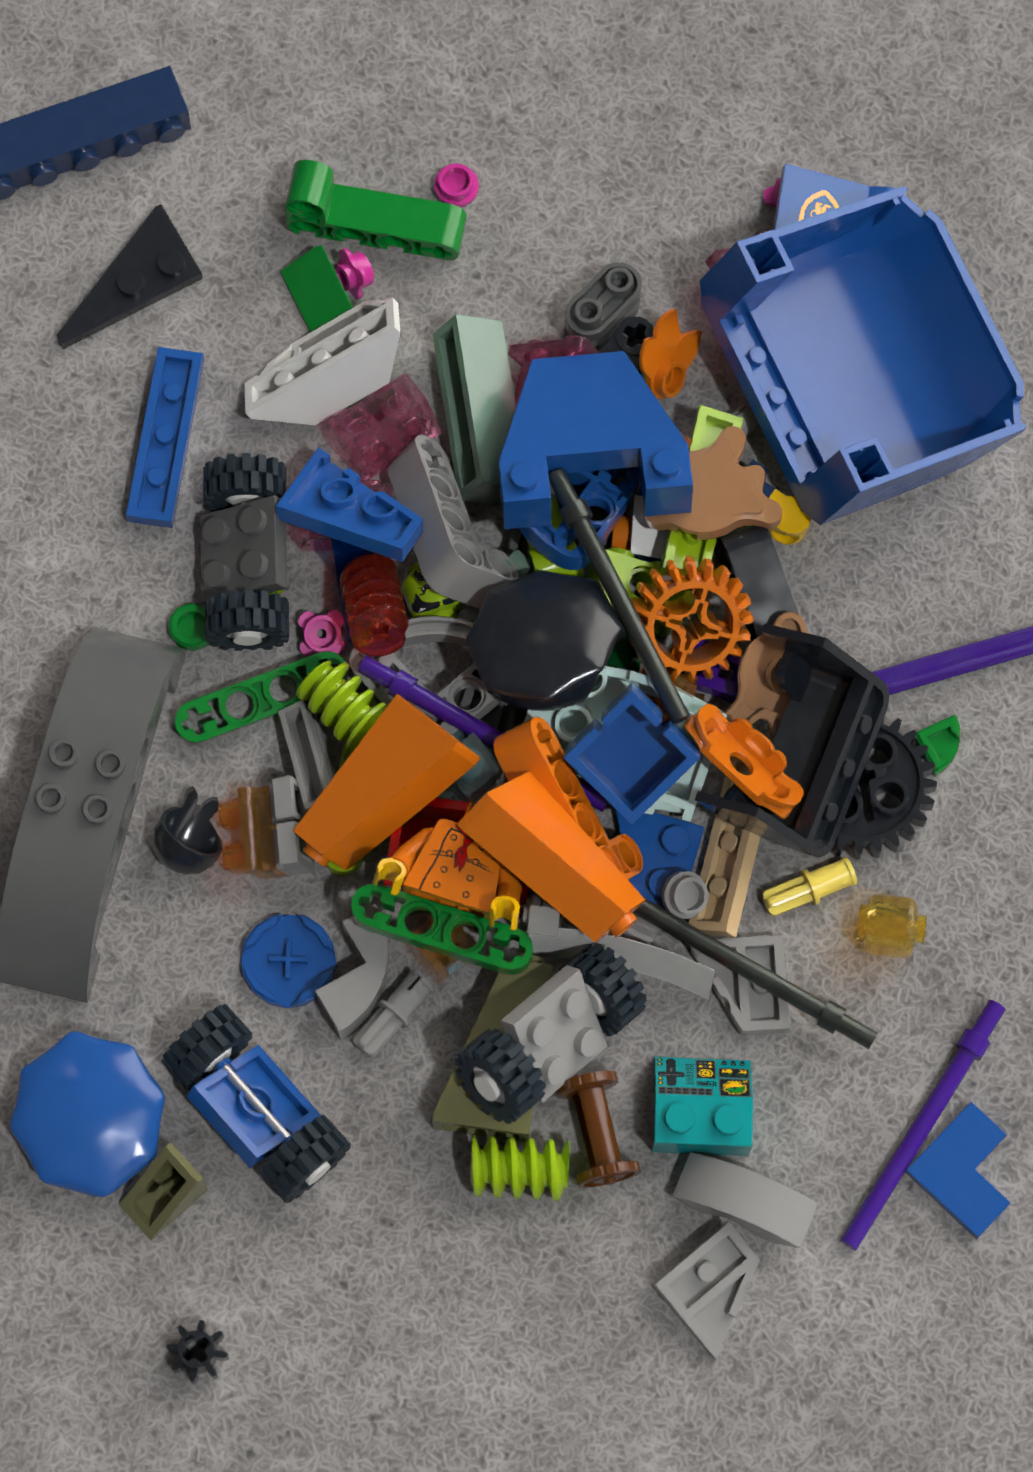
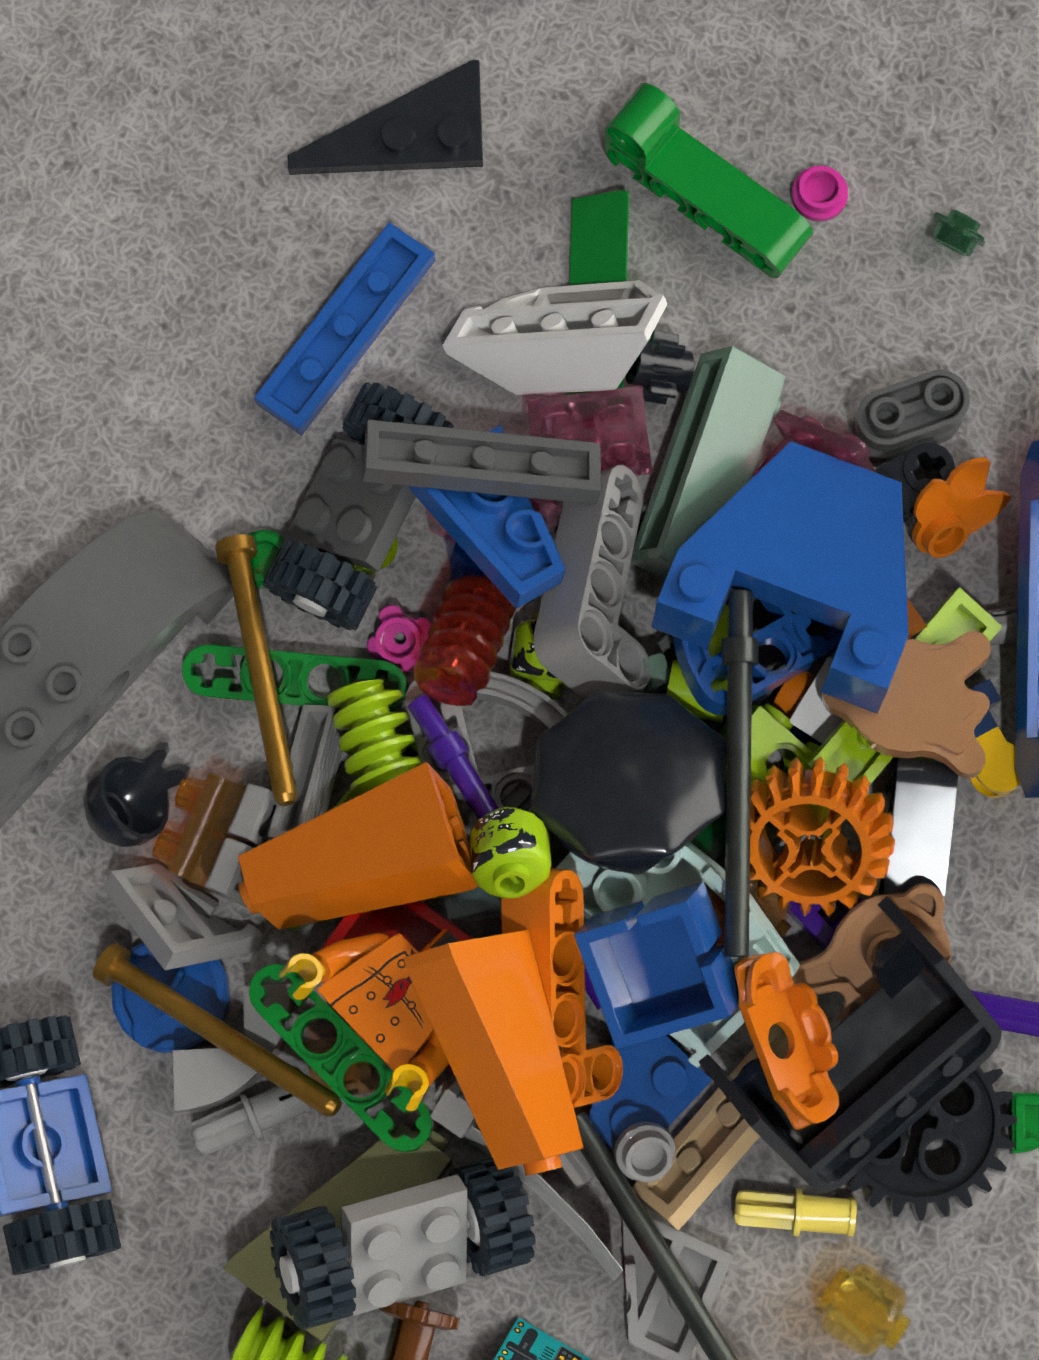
camera: 35 degrees right, 5 degrees up
(174, 628) = (236, 553): none -> pearl gold bar
(241, 957) = (114, 967): none -> pearl gold bar
(265, 902) = (175, 919): none -> light grey wing
(322, 474) = (482, 462): none -> dark grey plate
(354, 272) = (650, 239): dark pink plate -> none
(414, 356) = (662, 368): none -> black gear
(485, 724) = (511, 850): none -> lime head
(568, 167) = (957, 232): none -> clear green plate

